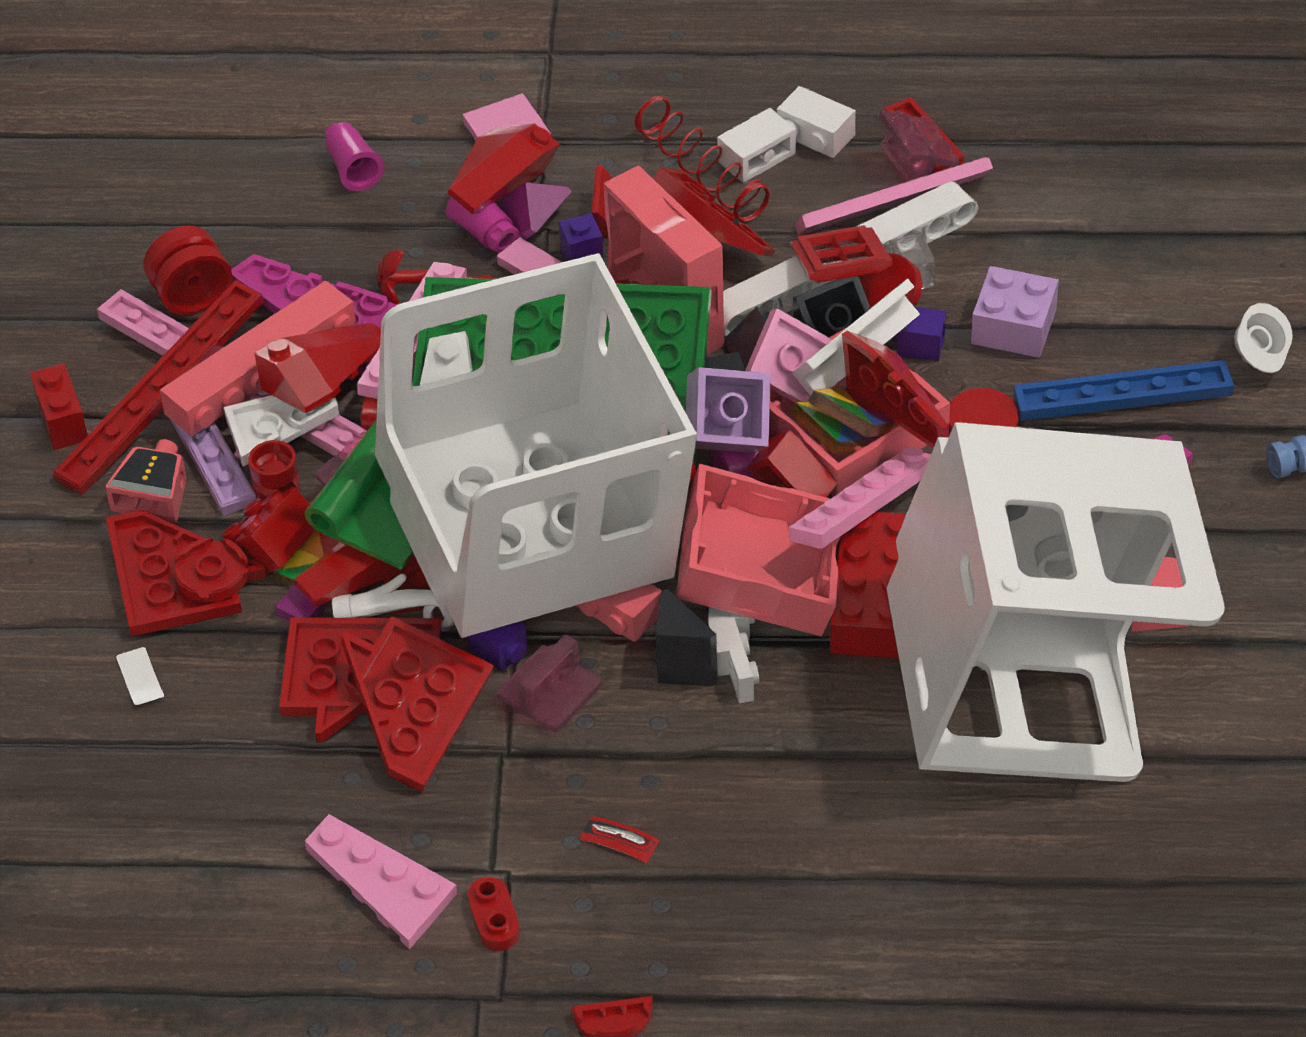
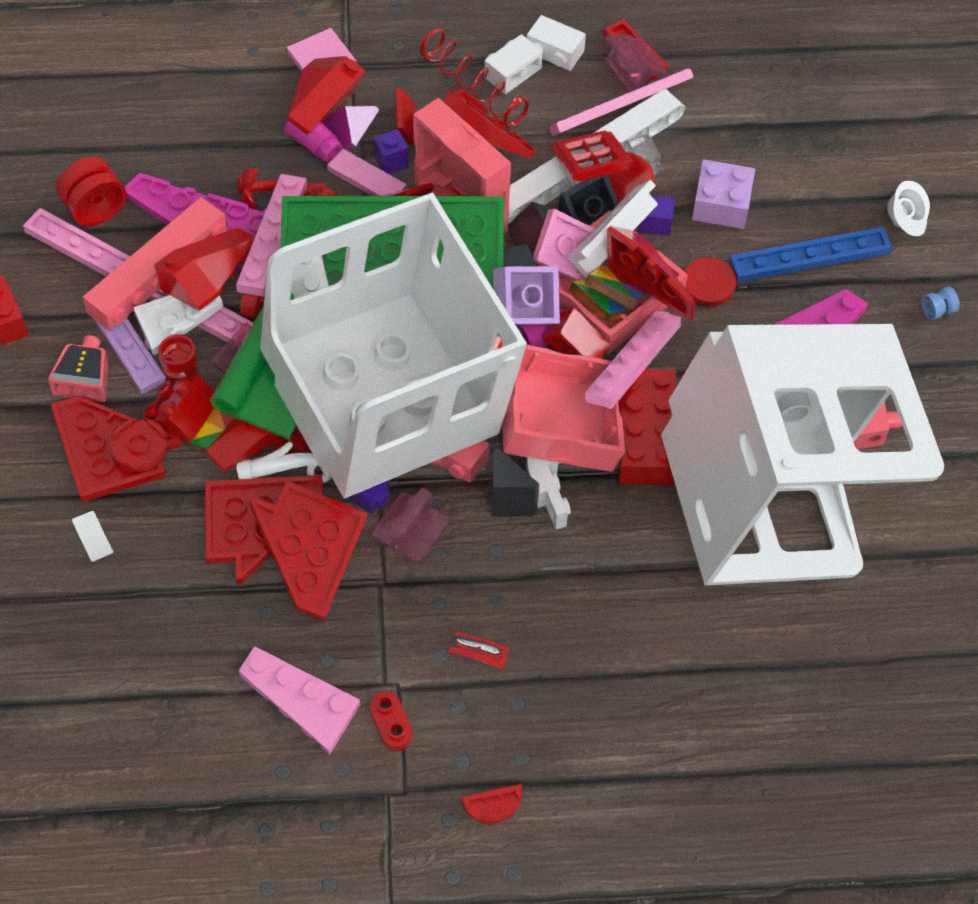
camera: 10 degrees left, 10 degrees up
(144, 400) = (69, 301): red tile -> none
(297, 605) = (207, 470): magenta tile -> none
(354, 159) = (208, 89): dark pink plant -> none

